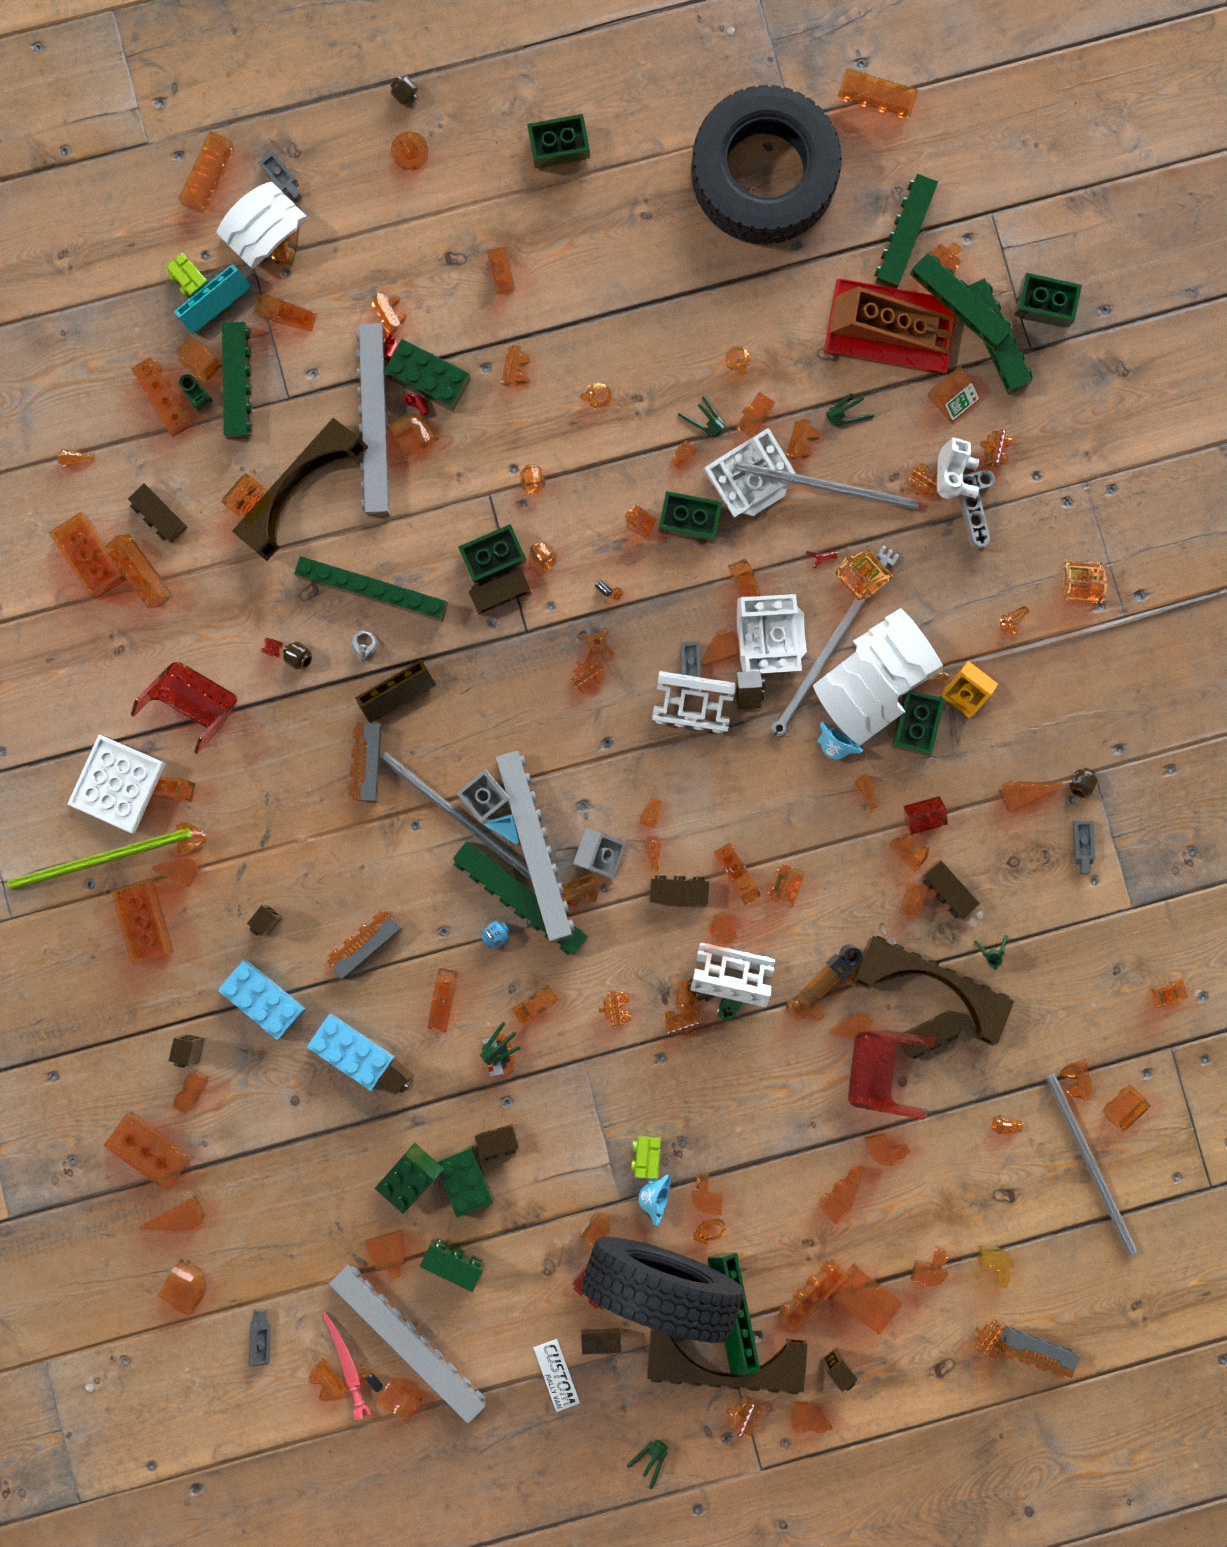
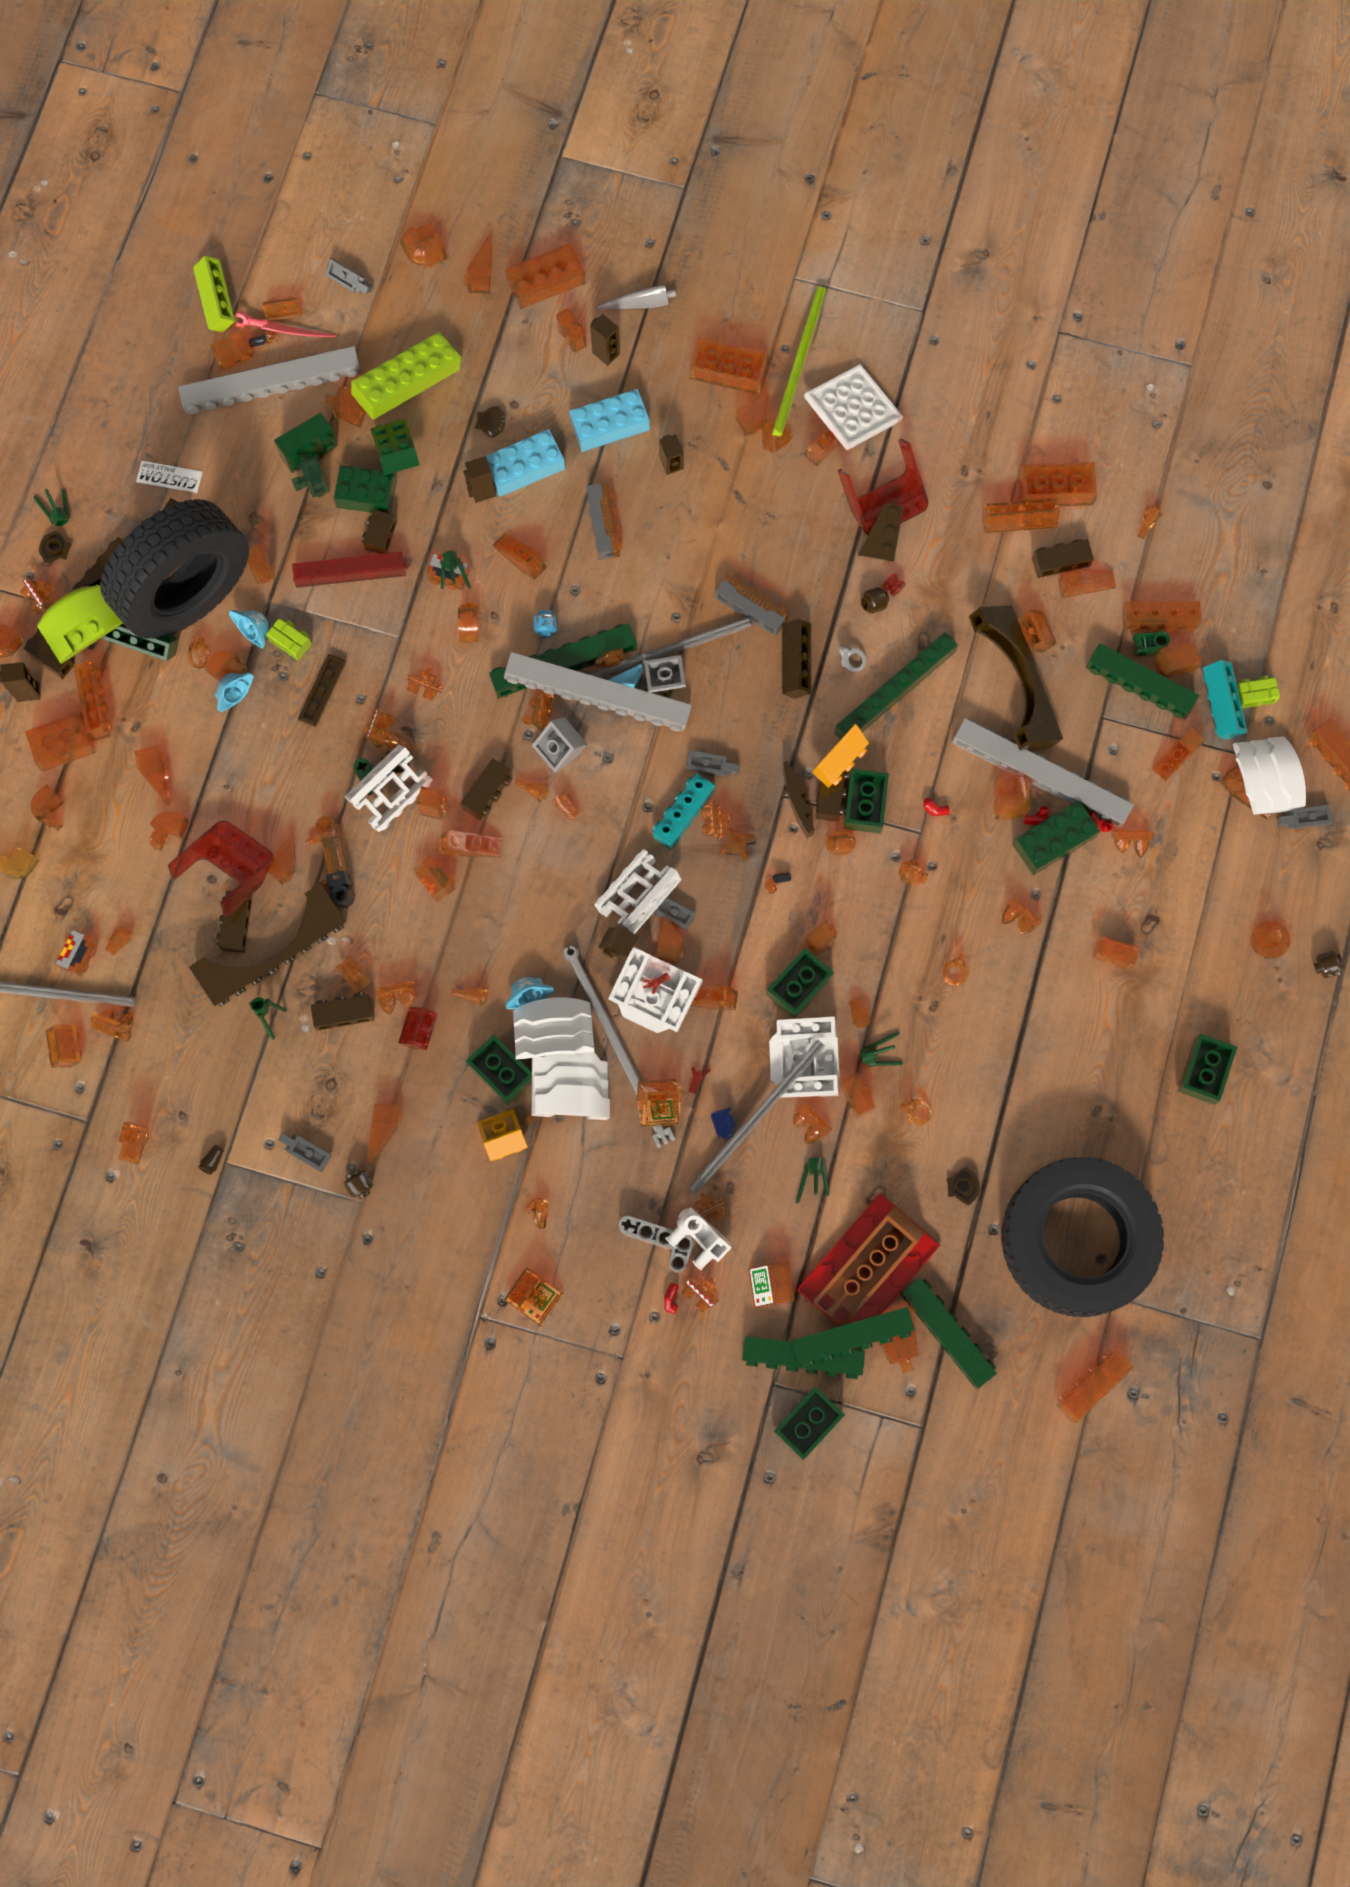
camera: 125 degrees right, 10 degrees down
(117, 1045) = (645, 298): none -> light grey piece
(168, 480) = (1085, 581): none -> clear orange slope
(228, 682) = (884, 535): none -> dark brown wing
(326, 1109) = (491, 421): none -> dark brown animal
(331, 1214) = (405, 375): none -> lime brick
(353, 1455) = (214, 294): none -> lime brick
(462, 494) = (933, 809): none -> red arm
(470, 594) = (841, 757): none -> light orange slope
(483, 1236) = (312, 477): none -> clear green brick
(495, 855) = (610, 658): none -> clear orange animal
(520, 621) = (796, 793): none -> dark brown slope
(537, 710) = (711, 764): none -> dark grey hinge
(548, 1145) = (349, 569): none -> clear red brick
(595, 707) = (684, 811): none -> teal brick
(675, 1097) = (322, 690): none -> dark brown tile
(689, 1434) = (53, 547): none -> dark brown animal
(725, 1177) = (232, 689): none -> medium azure hat
(753, 1358) = (77, 621): none -> lime slope
(765, 638) = (656, 982): none -> clear red bar
(777, 286) = (964, 1186): none -> dark brown animal
(846, 511) = (723, 1123): none -> clear blue window
(1016, 471) = (669, 1296): none -> red arm
(1040, 1153) = (77, 953): none -> brick
(1139, 919) = (211, 1160): none -> dark brown cone

